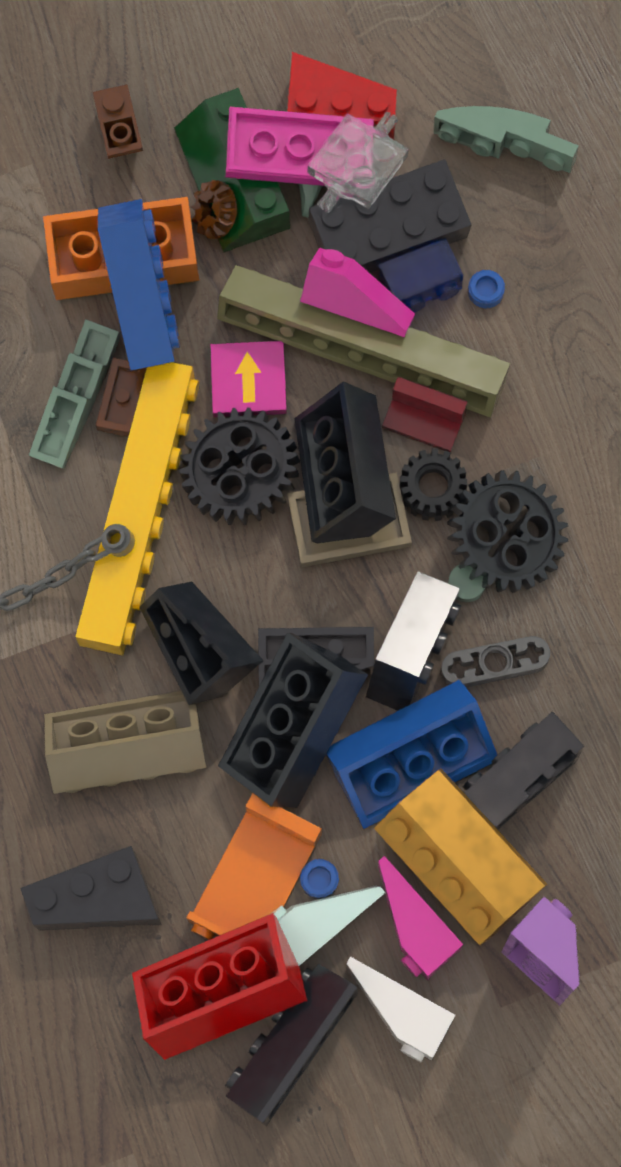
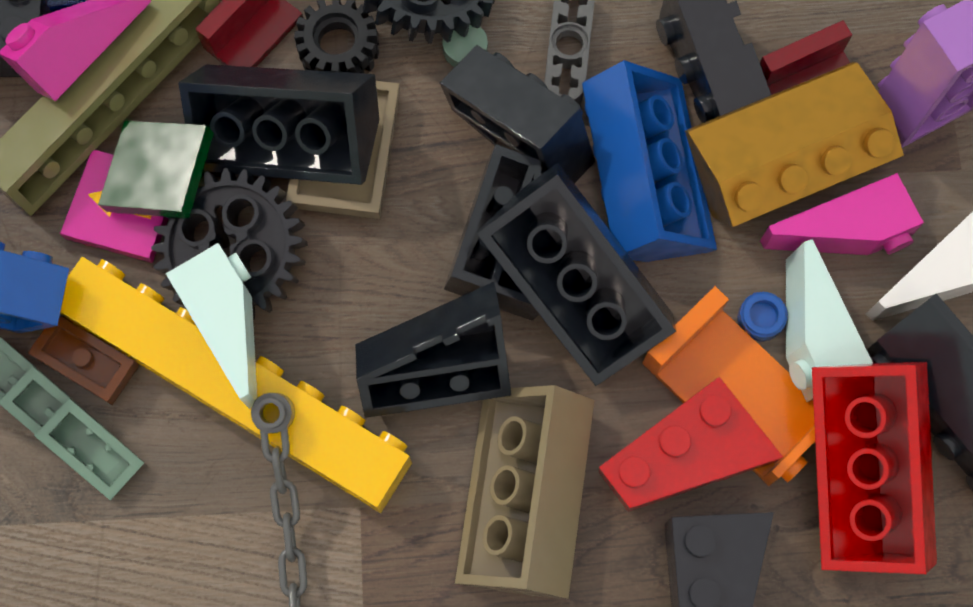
camera: 75 degrees left, 0 degrees up
(178, 477) = (223, 313): none -> light aqua slope
(190, 847) = (688, 449): none -> red wedge
(277, 391) = (156, 169): none -> tile
(544, 855) = (806, 58): none -> dark red panel

